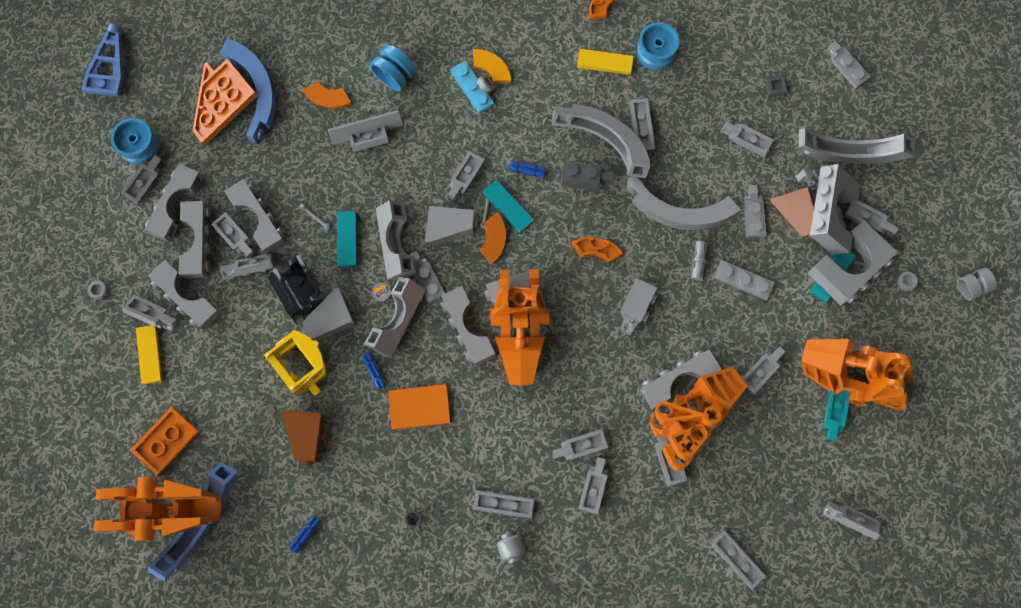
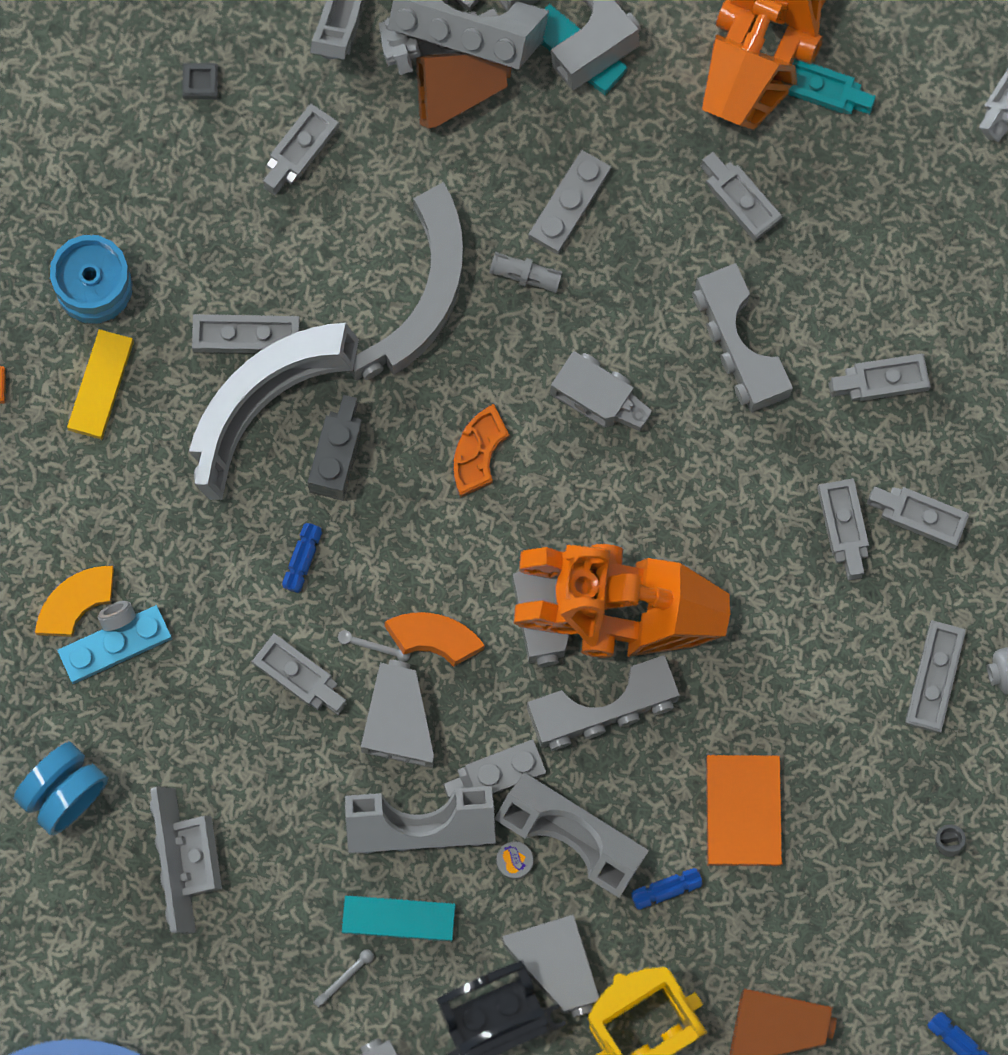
camera: 90 degrees left, 0 degrees up
(327, 97) = (93, 934): orange tile -> none
(508, 206) = (374, 603): teal tile -> none
(714, 397) = (789, 284): orange piece -> none
(754, 213) = (446, 162): light grey hinge -> none

